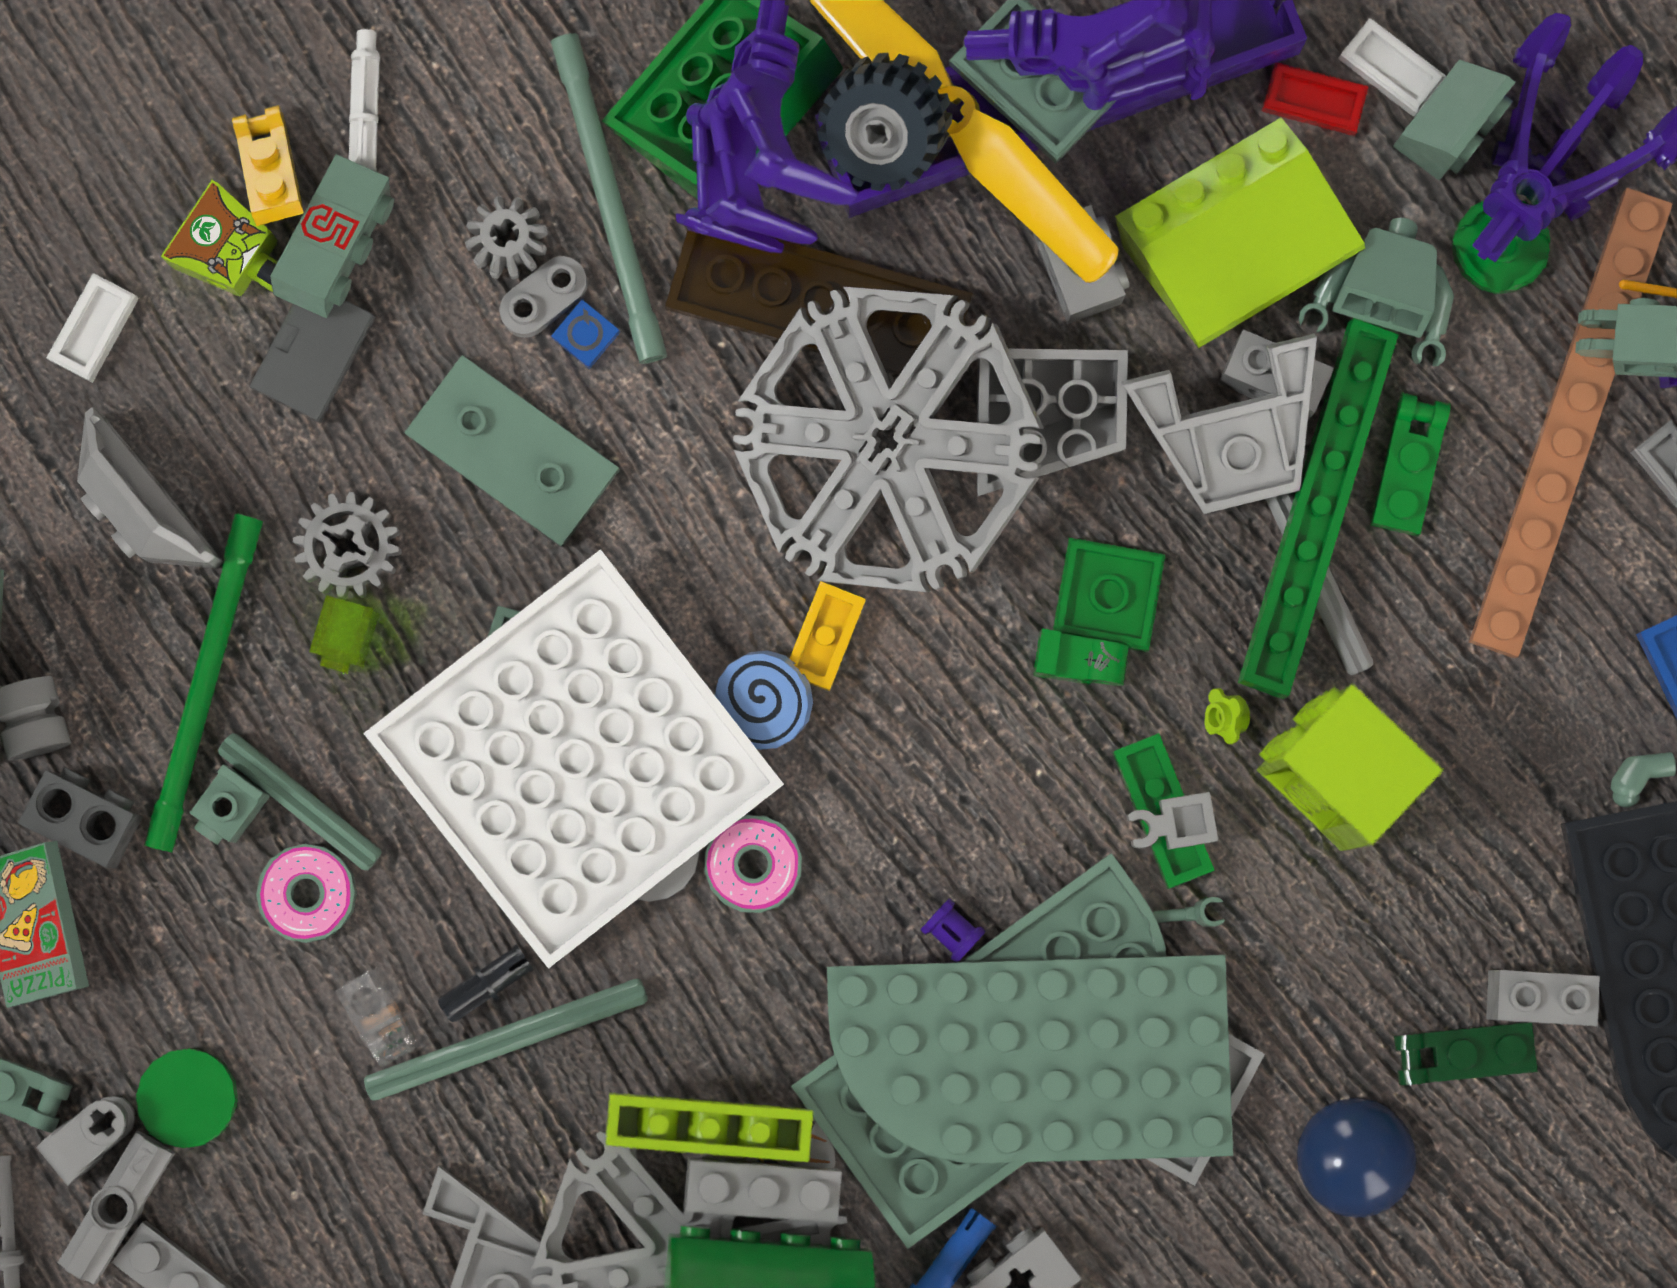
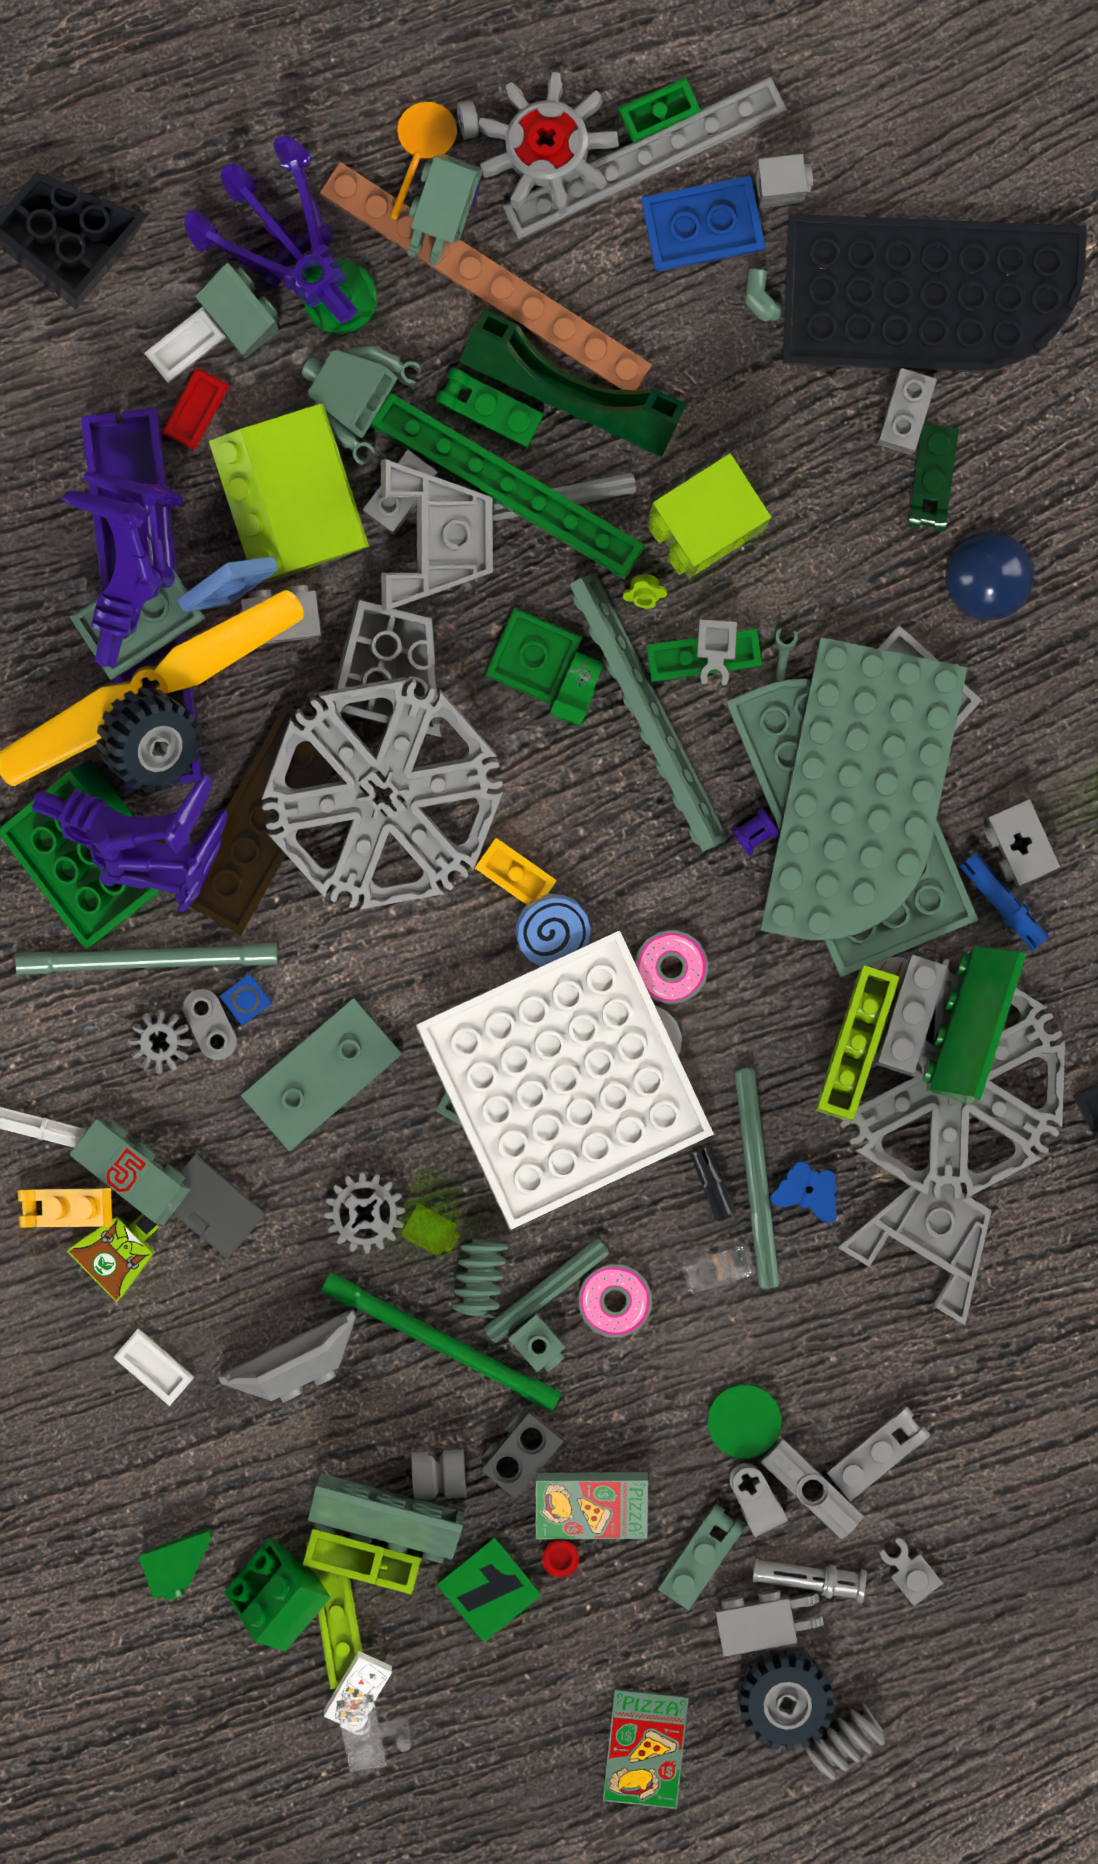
camera: 80 degrees left, 5 degrees up
(296, 712) = (480, 1277): none -> sand green piece
(495, 1128) = (821, 1198): none -> blue animal
(1074, 756) = (643, 702): none -> sand green plate
(1107, 176) = (228, 584): none -> medium blue tile
(1485, 464) = (505, 354): none -> dark green arch

